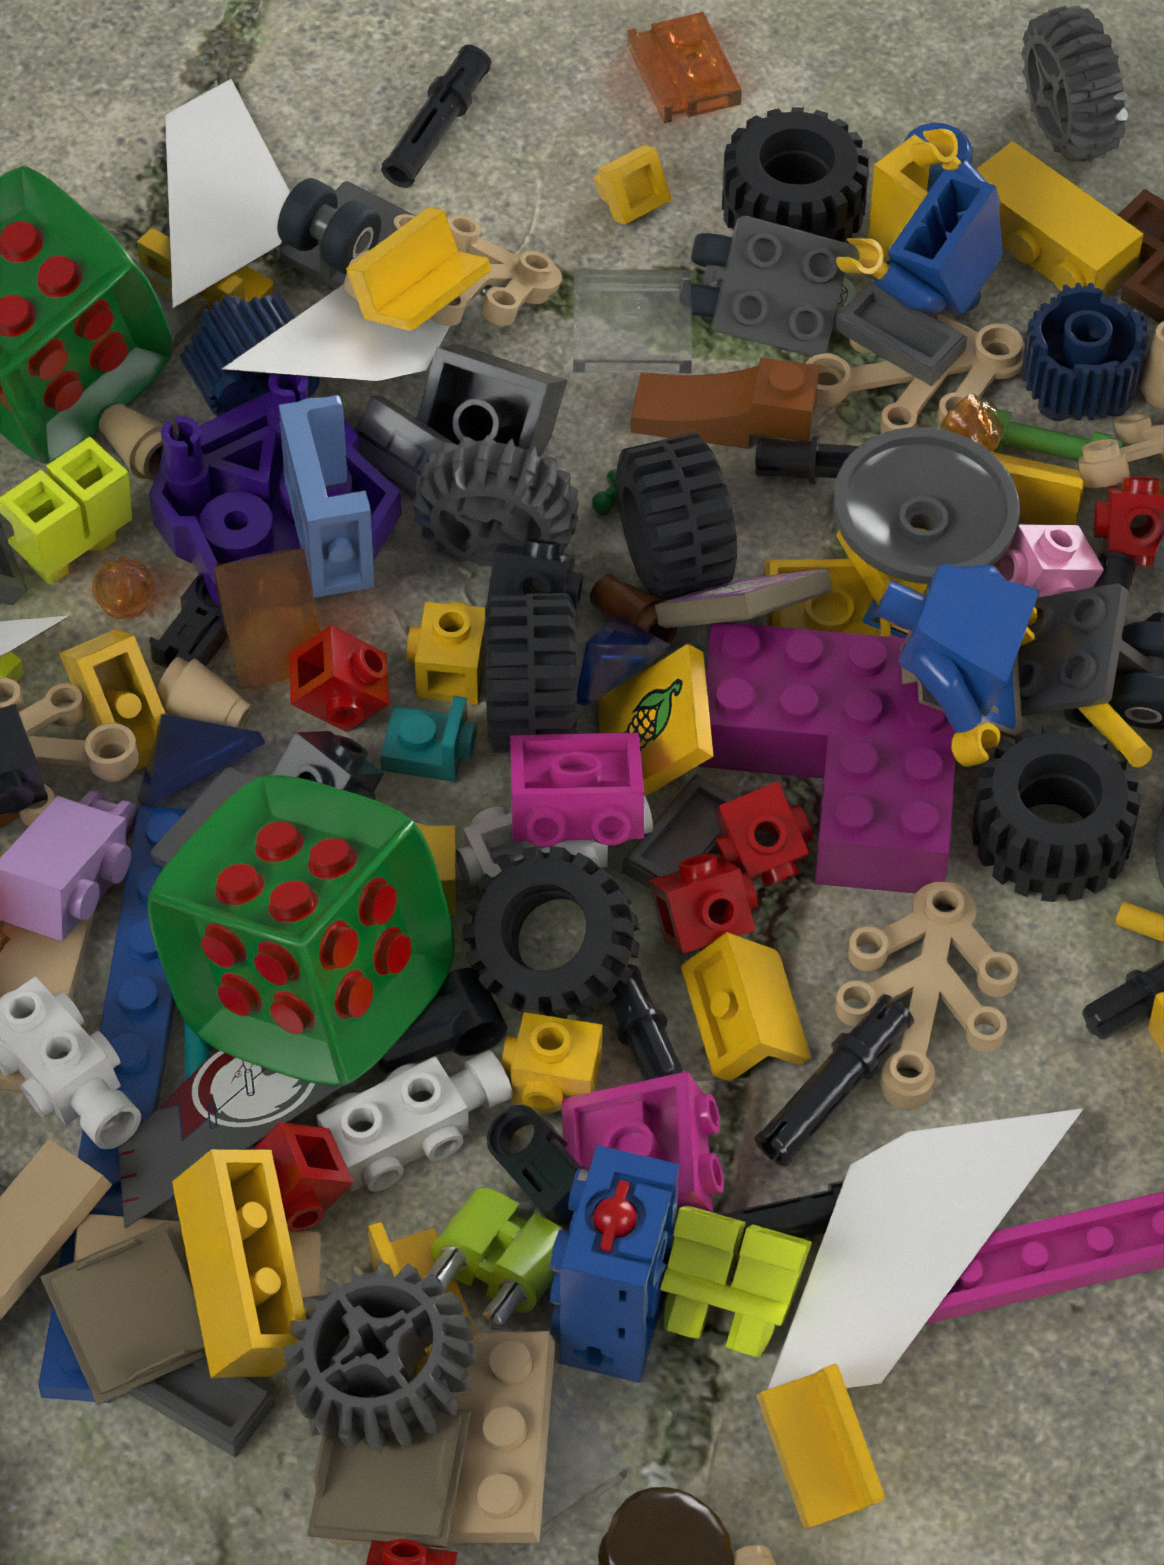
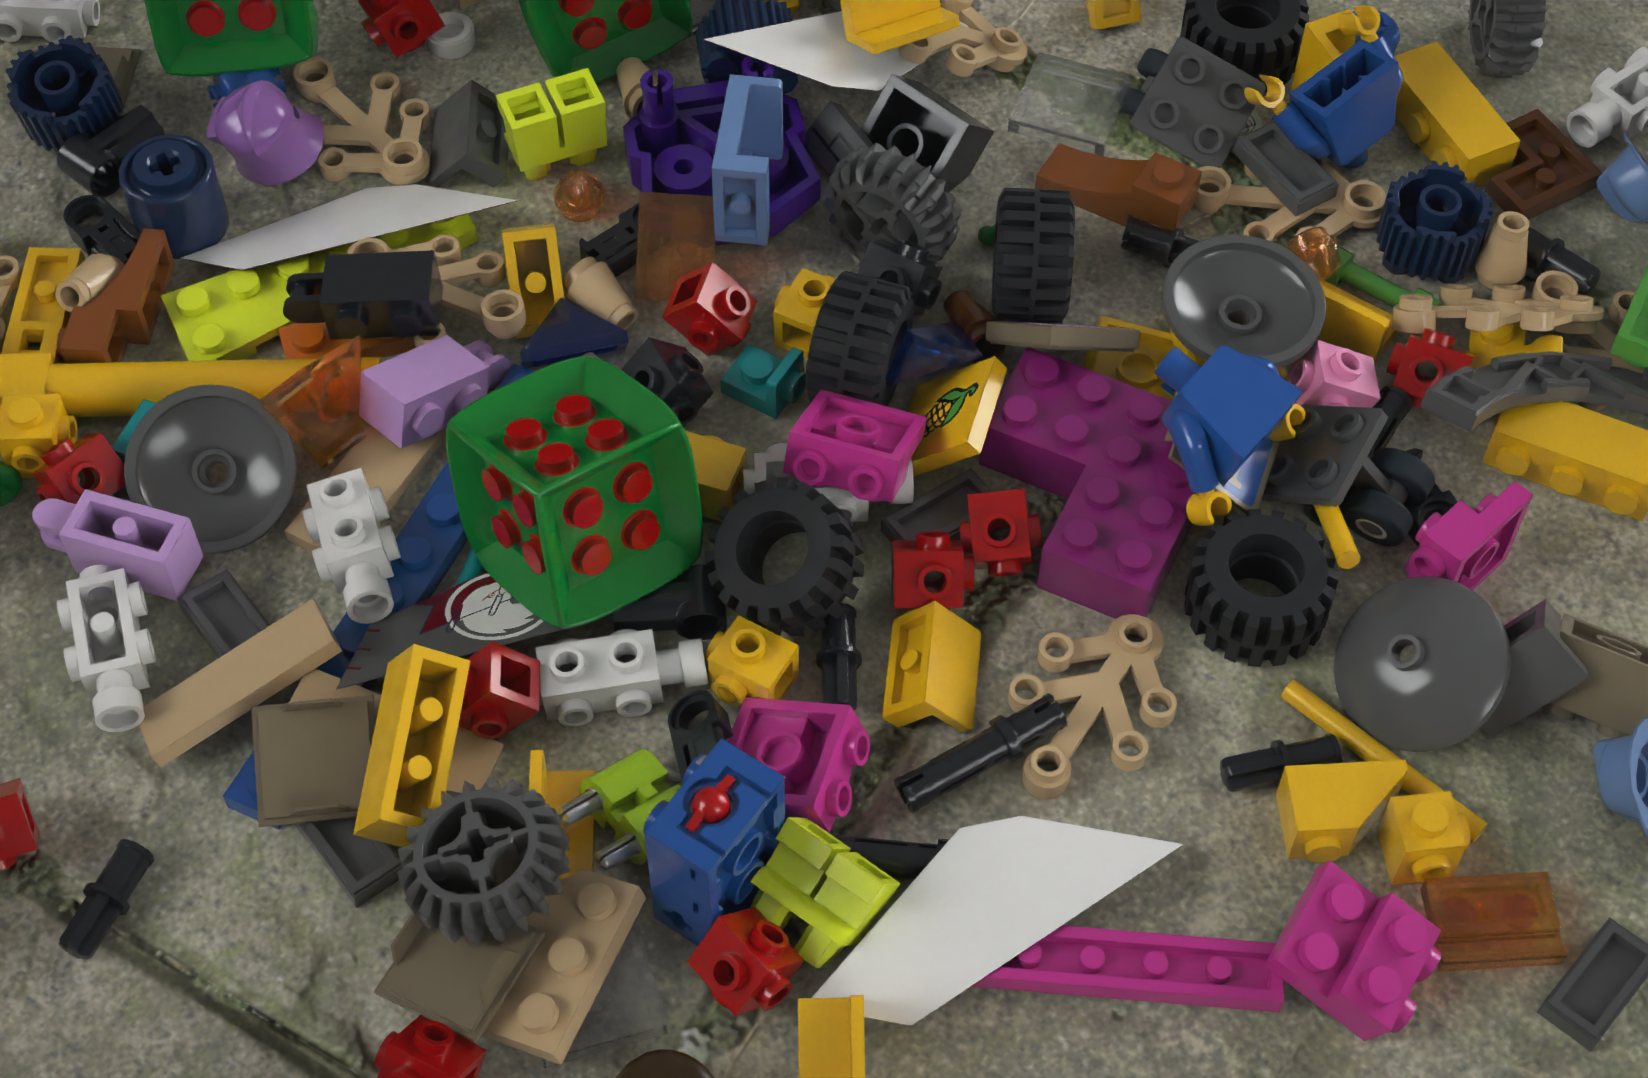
camera: 20 degrees right, 0 degrees up
(687, 1374) = (746, 962): none -> red brick

